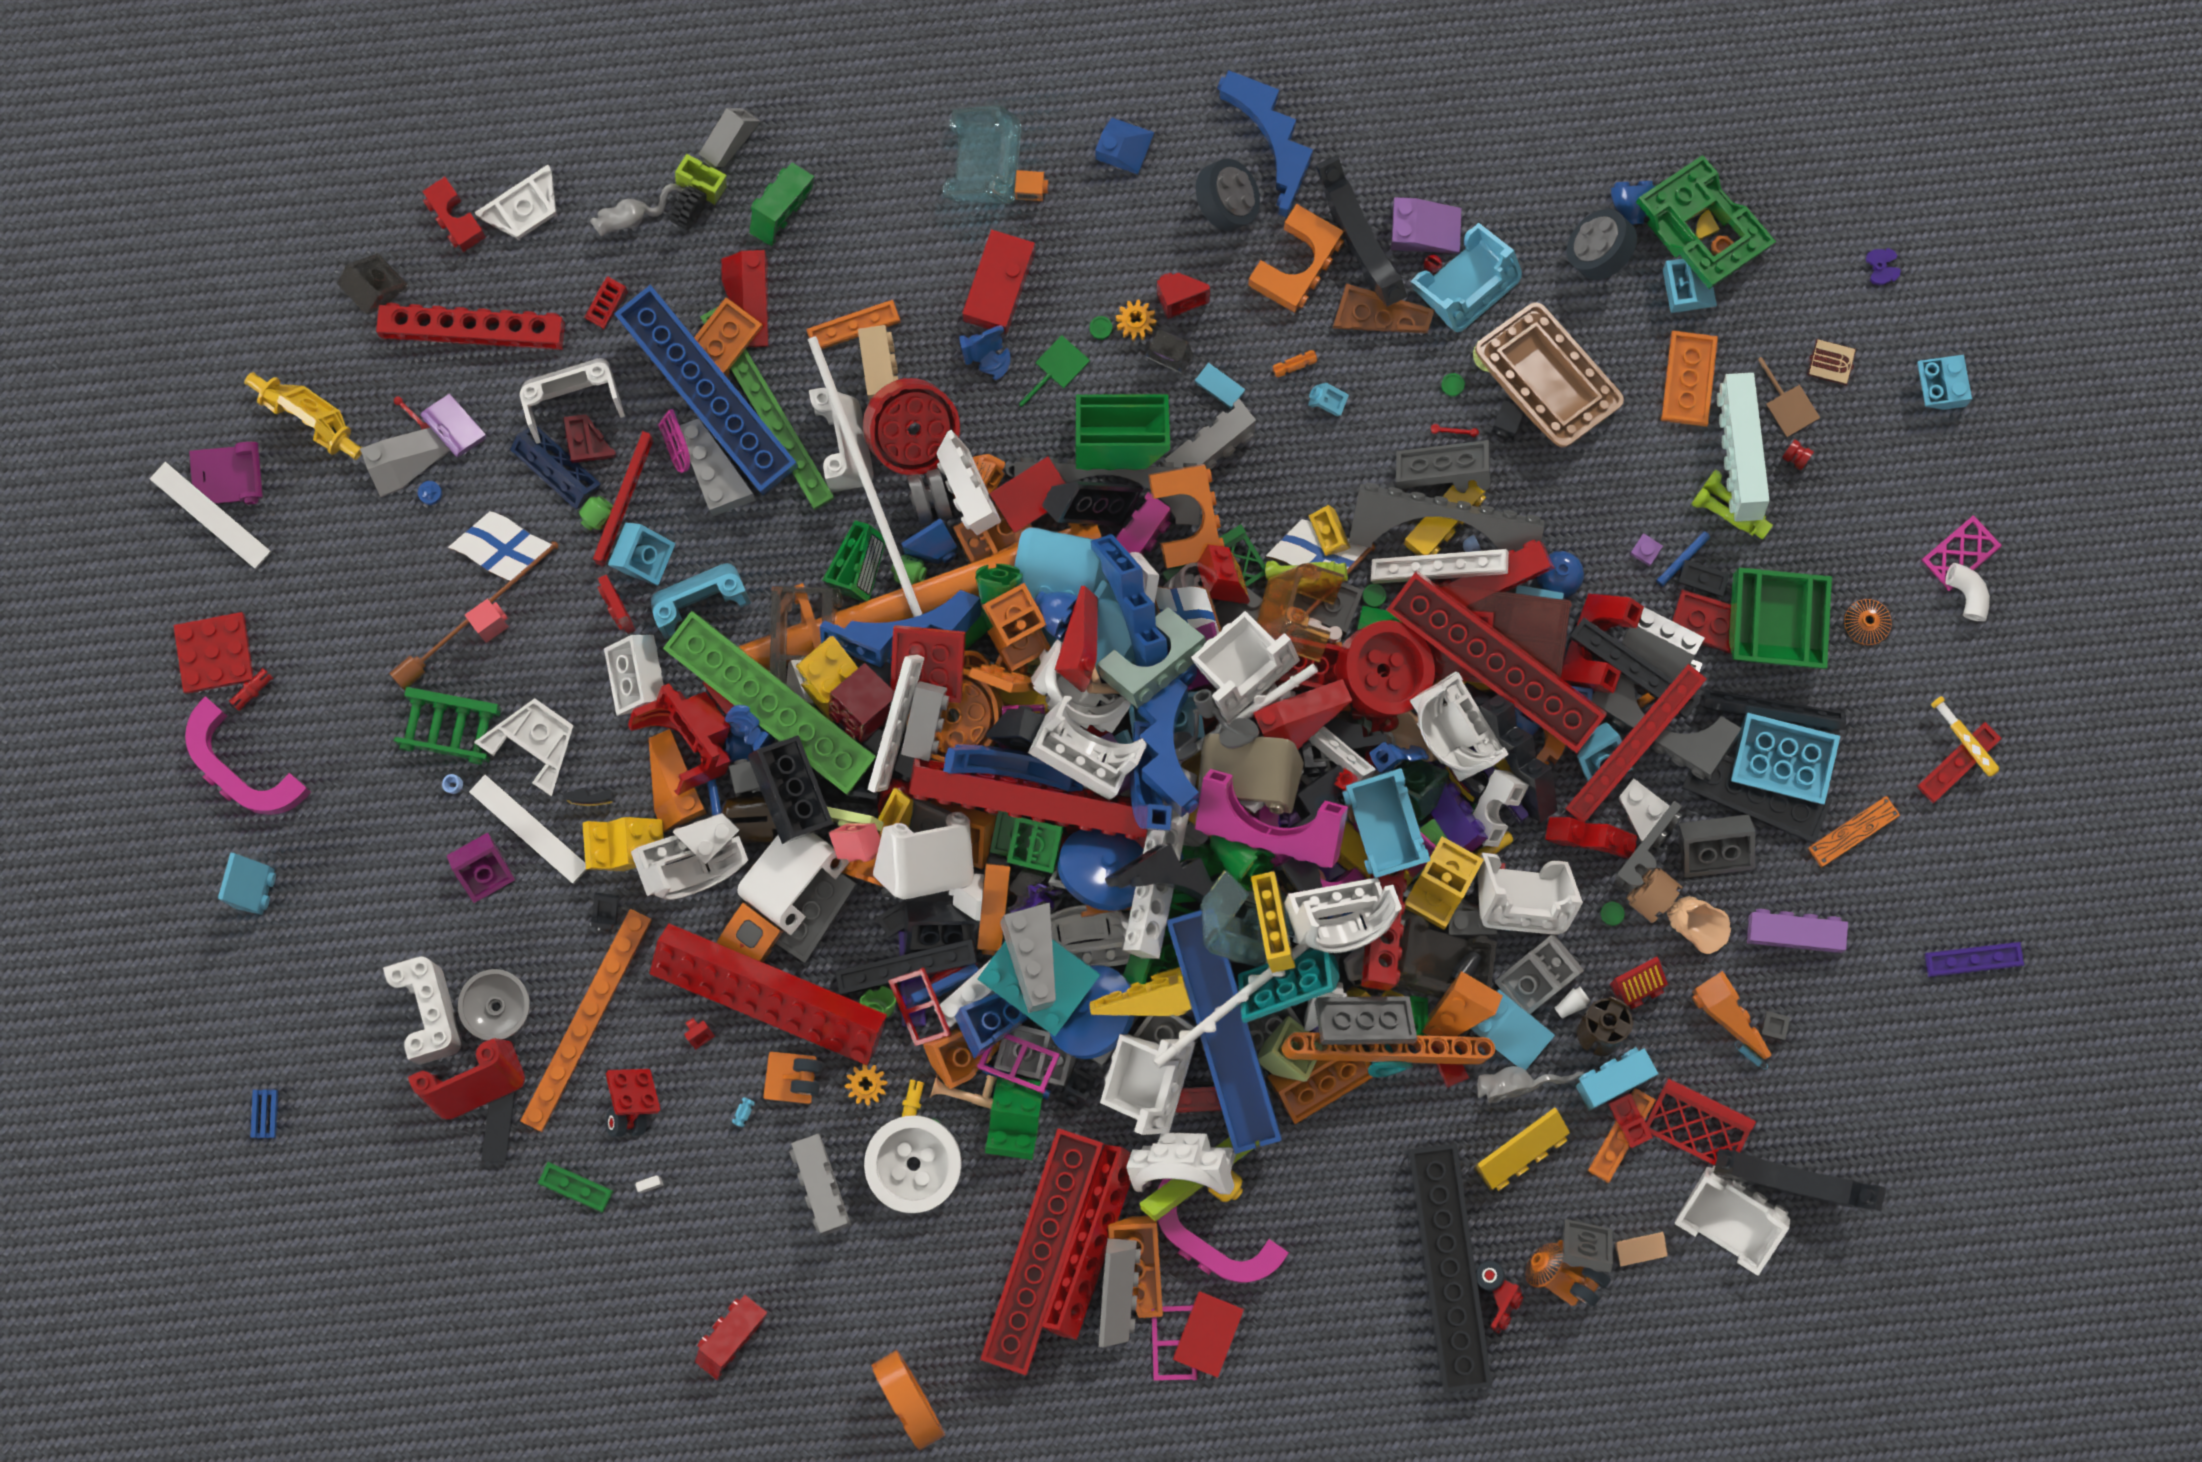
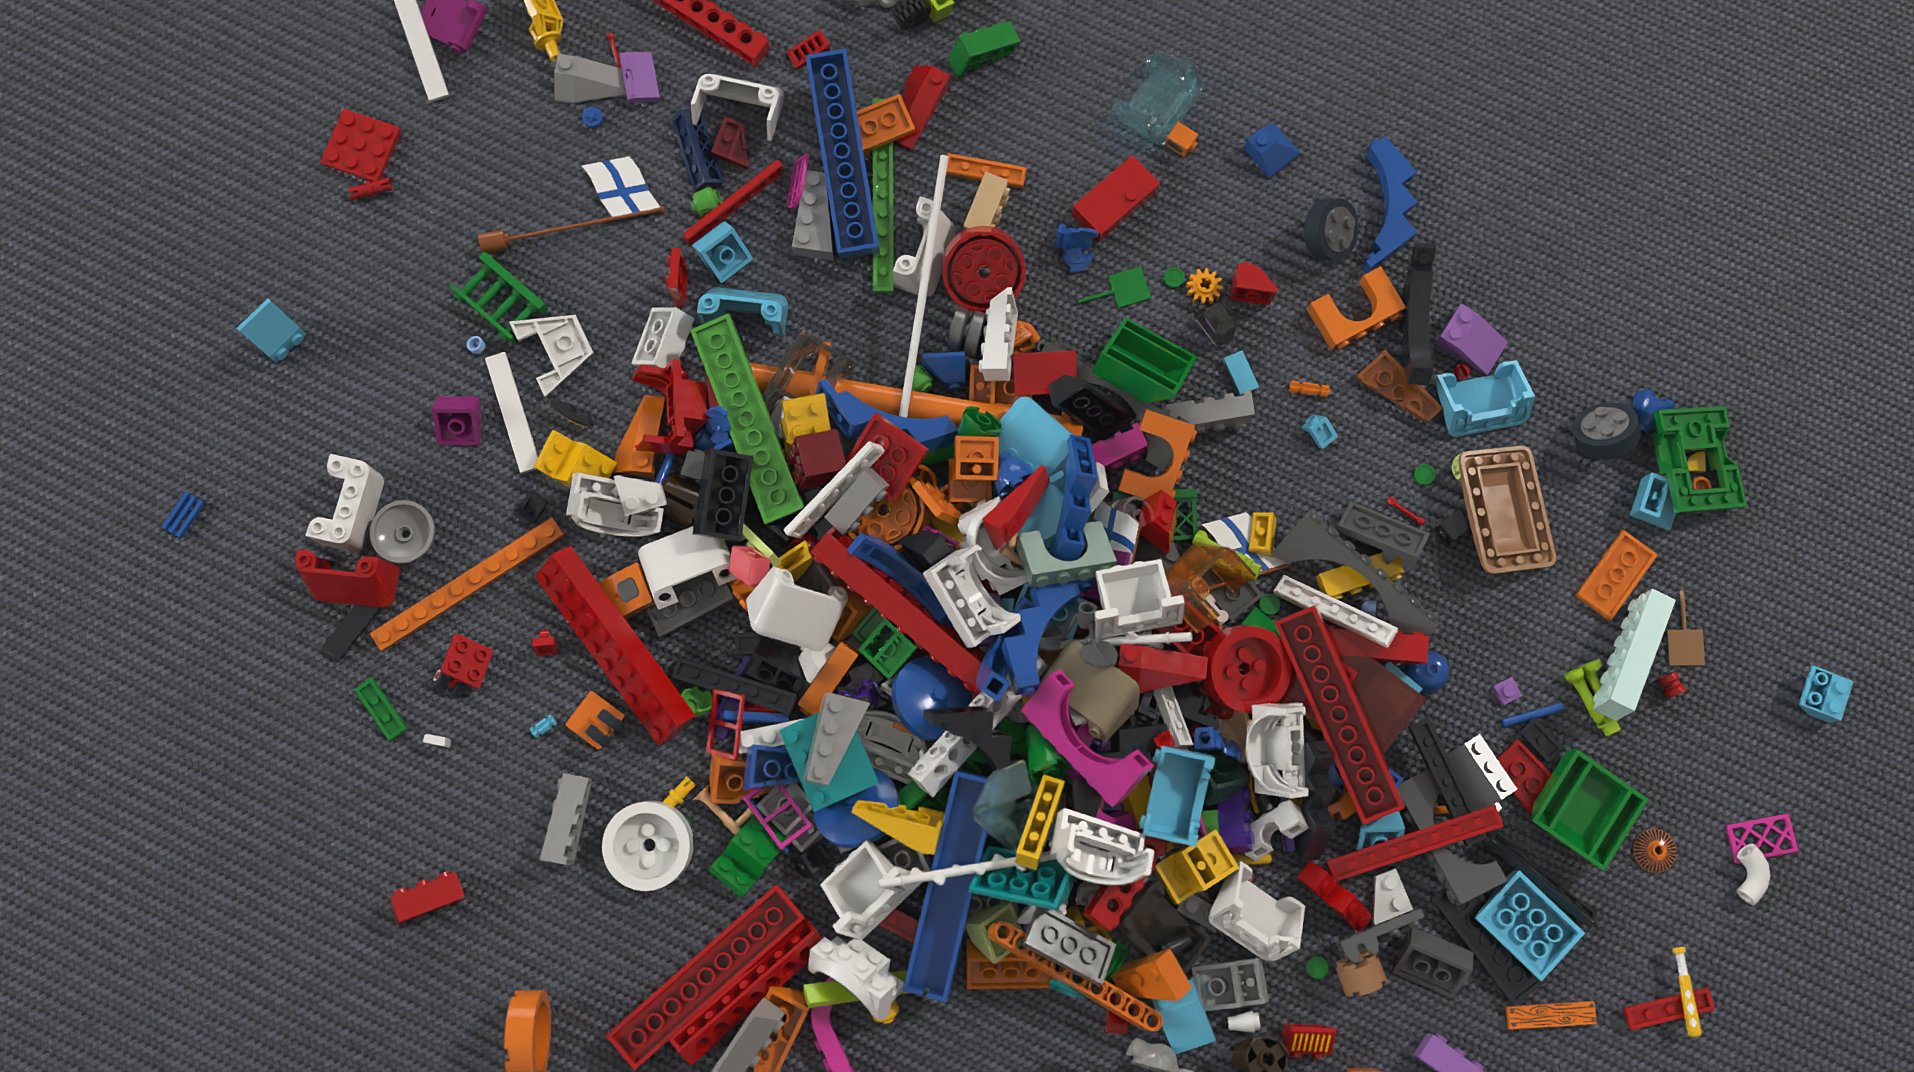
camera: 20 degrees right, 0 degrees up
(198, 736) = (305, 211): dark pink arch -> none
(487, 620) = (575, 235): coral brick -> none
(856, 562) = (880, 350): green wedge -> none
(859, 1078) = (642, 764): light orange gear -> none
(1605, 613) = (1448, 724): red arch -> none
(1700, 923) = (1384, 1018): light nougat hair -> none
(1831, 362) = (1738, 626): piece -> none
(1882, 273) = (1820, 567): dark purple piece -> none

